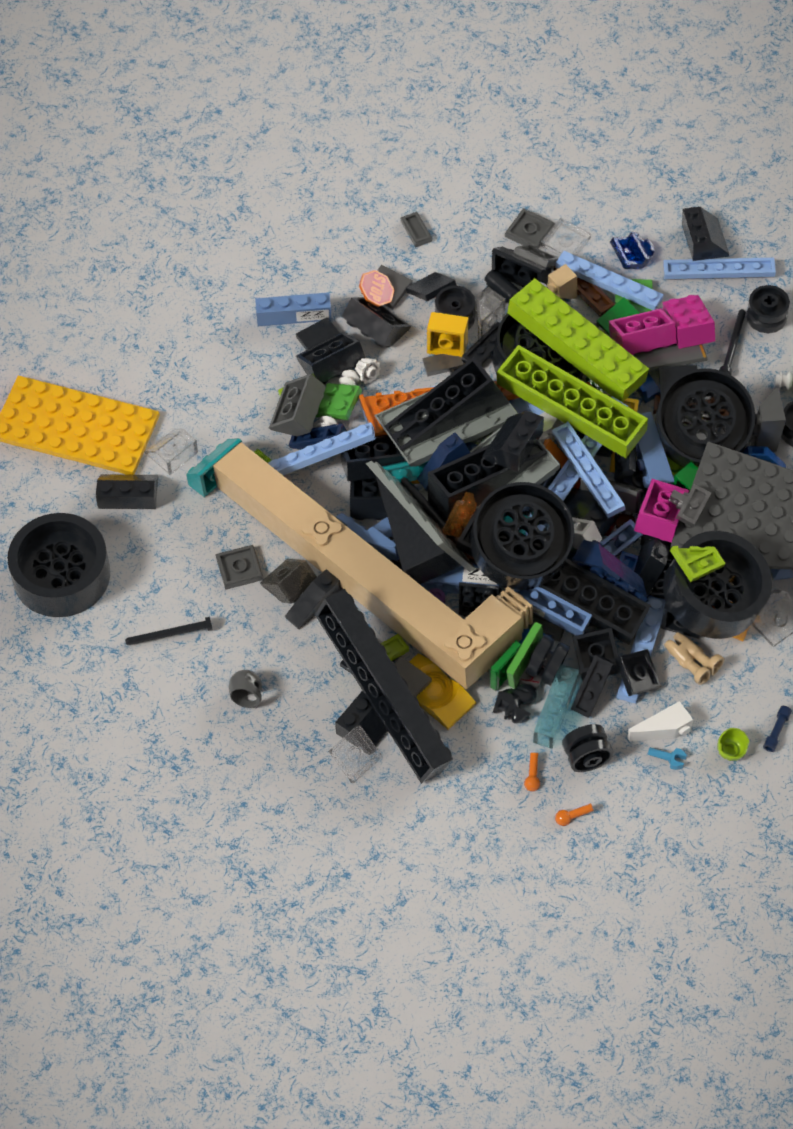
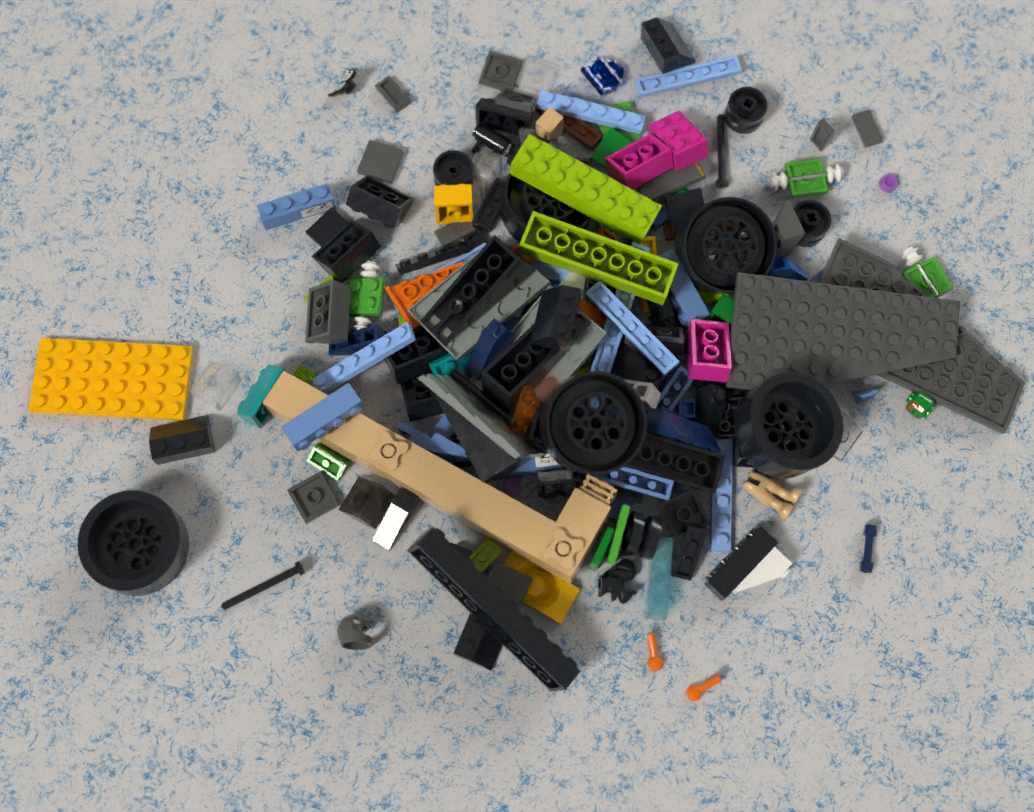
camera: 20 degrees left, 15 degrees up
(261, 538) = (328, 461): none -> bright green slope
(267, 485) = (323, 417): none -> medium blue brick
(355, 754) = (480, 679): clear tile -> none
(367, 369) = (385, 256): white piece -> none
(373, 211) = (346, 84): none -> black animal
(376, 288) = (372, 168): piece -> none
(405, 379) = (440, 254): none -> black plate
(430, 286) = (423, 154): black tile -> none
(587, 748) = (703, 621): black wheel -> none
(634, 712) = (741, 563): none -> black brick
(638, 672) = (728, 525): black tile -> none
(670, 757) = (775, 603): dark azure bar -> none
(690, 504) = (739, 343): flat silver hinge -> none
(697, 561) = (772, 414): lime wing -> none
(733, 744) = (834, 578): lime hair -> none

